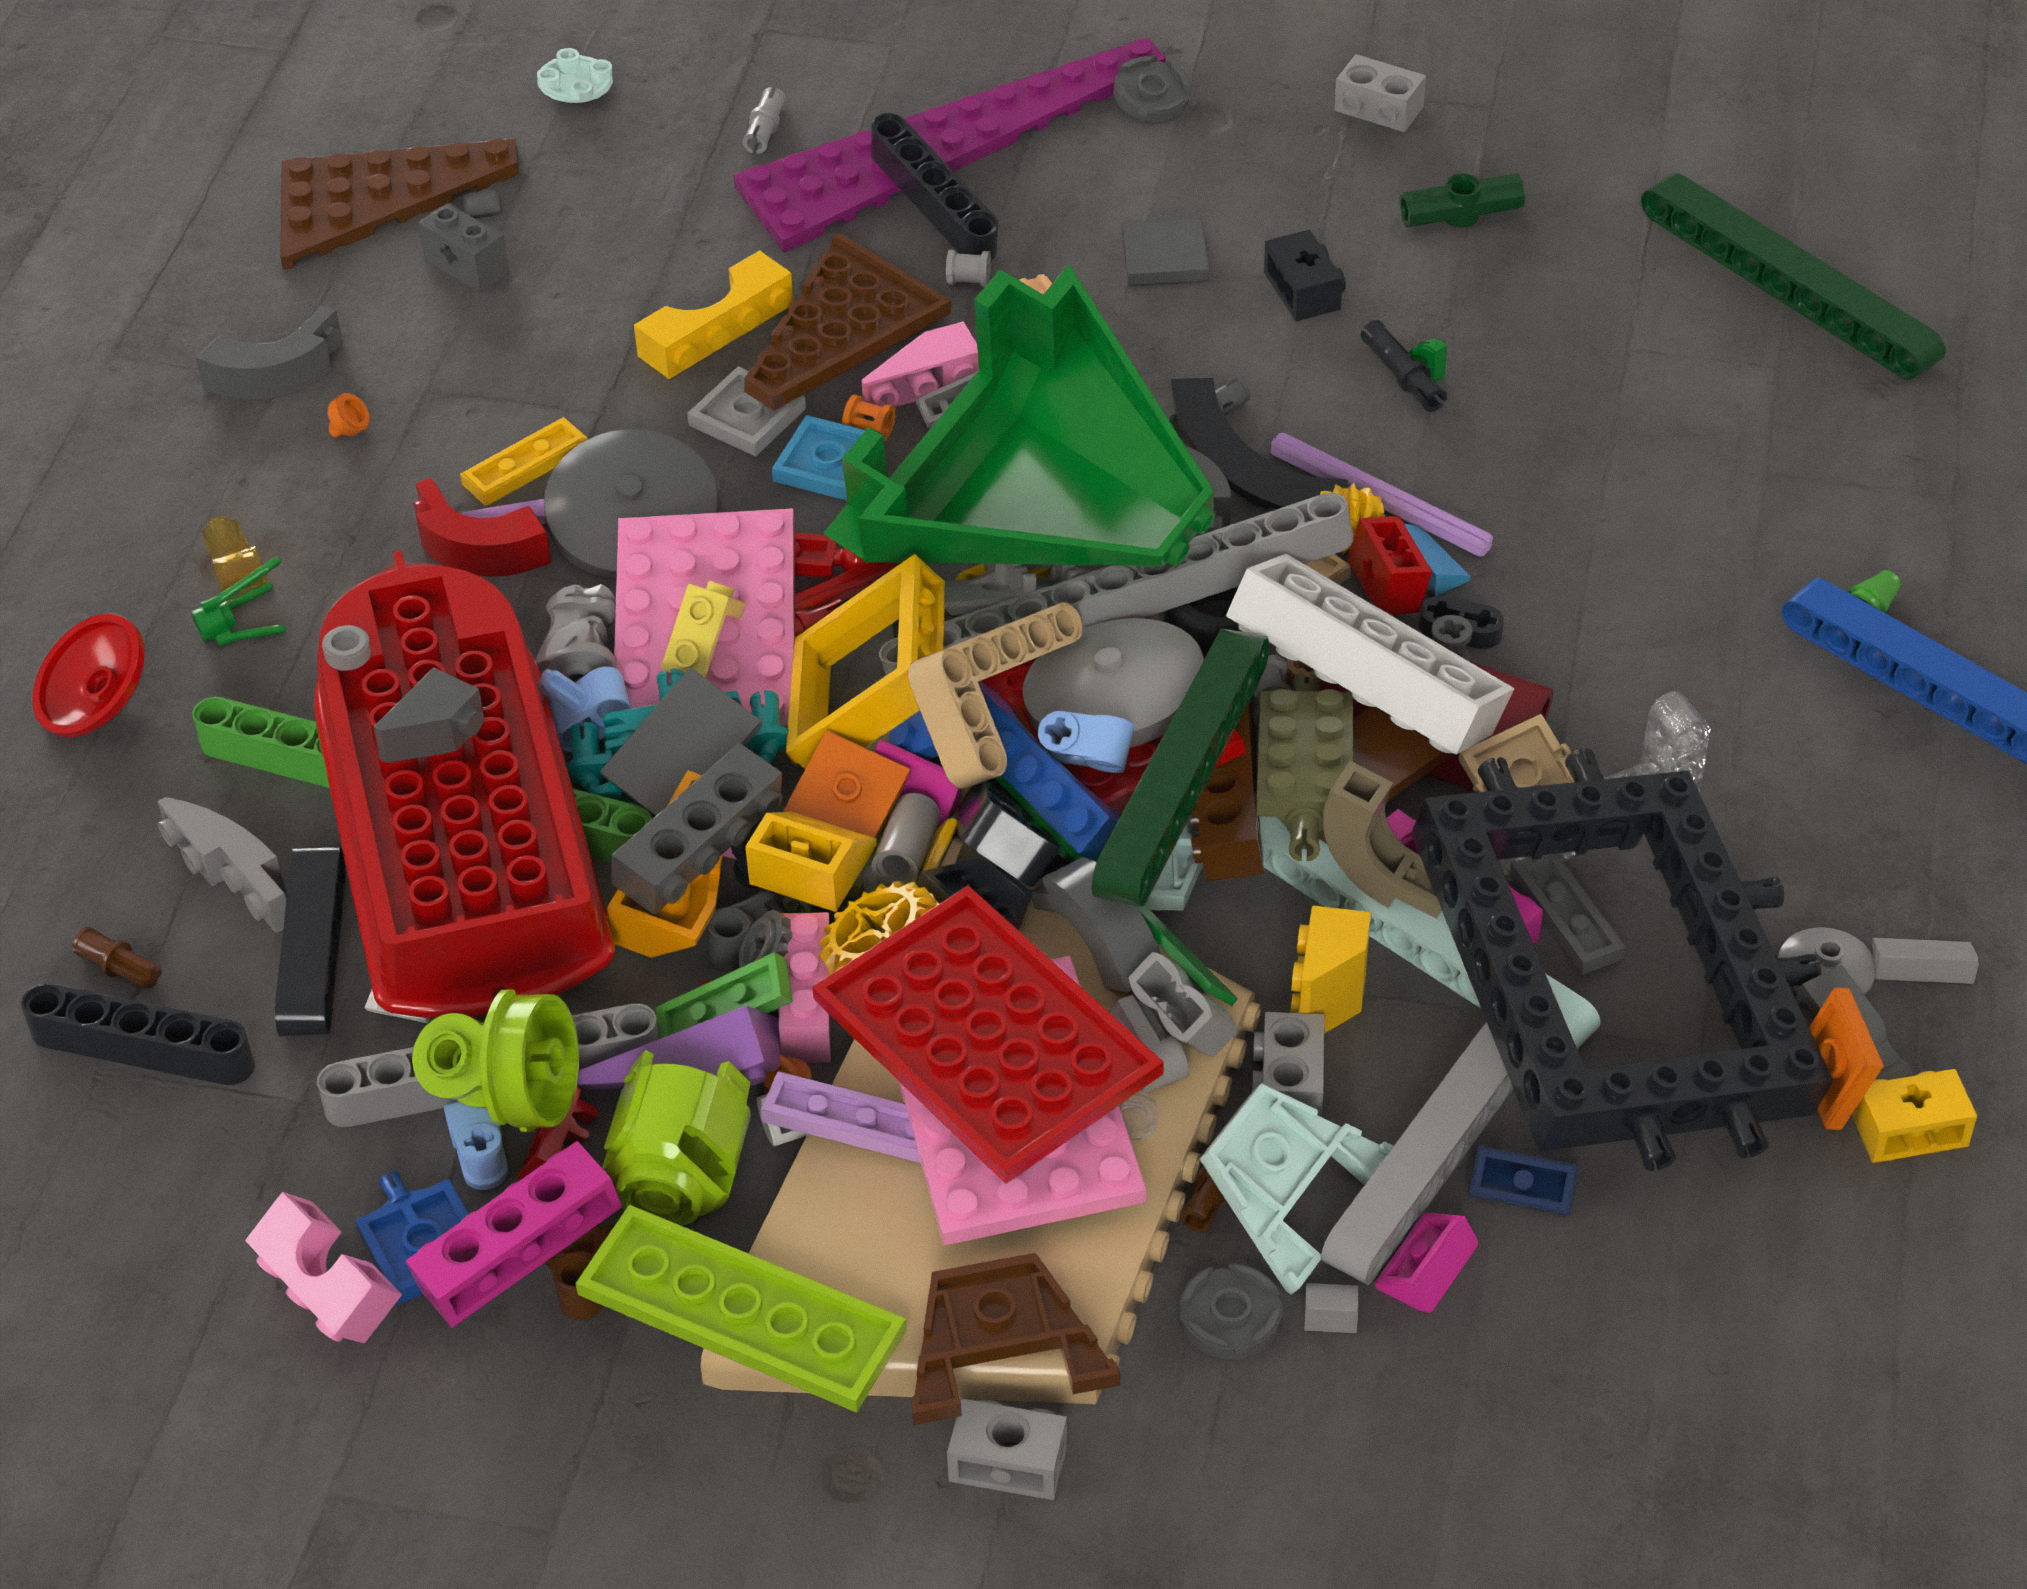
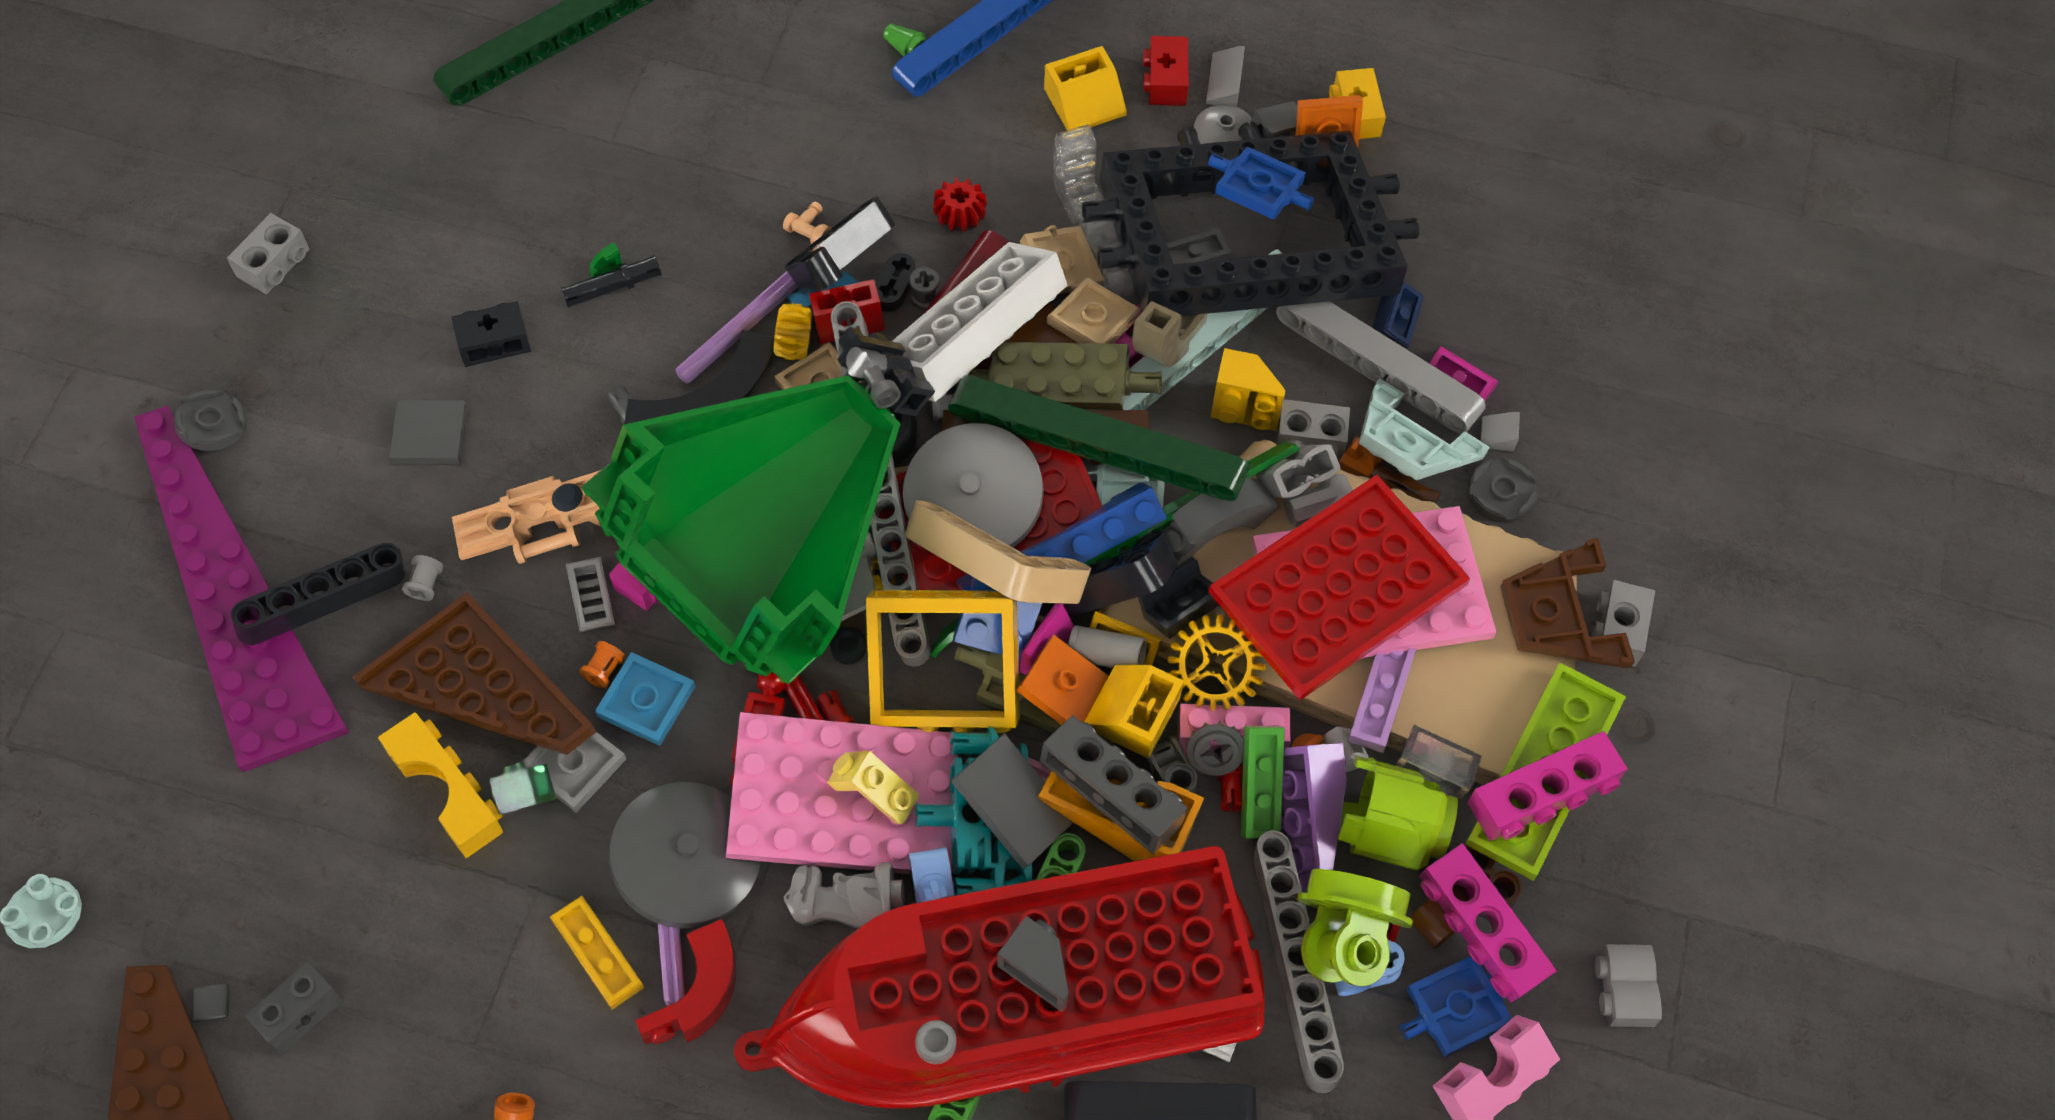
camera: 90 degrees left, 15 degrees up
(440, 1434) = (1629, 986): none -> light grey brick
(670, 1213) = (1593, 756): none -> dark pink brick
(705, 364) = (521, 787): none -> clear green brick
(745, 1181) = (1439, 761): none -> clear slope
(764, 120) = (160, 739): light grey pin -> none
(923, 366) = (545, 613): bright pink slope -> none
(1094, 740) = (1052, 504): light blue piece -> none
(1245, 524) = (885, 370): none -> black hips
(1416, 777) = (1093, 314): none -> tan tile
(1462, 200) = (425, 215): dark green piece -> none
(1489, 547) = (822, 260): none -> beam
(1516, 541) = (802, 223): none -> light nougat piece
(1598, 669) = (959, 204): none -> red gear
(1658, 925) = (1260, 182): none -> blue plate
(1834, 781) = (1085, 89): none -> yellow slope
(1908, 881) = (1168, 70): none -> red brick

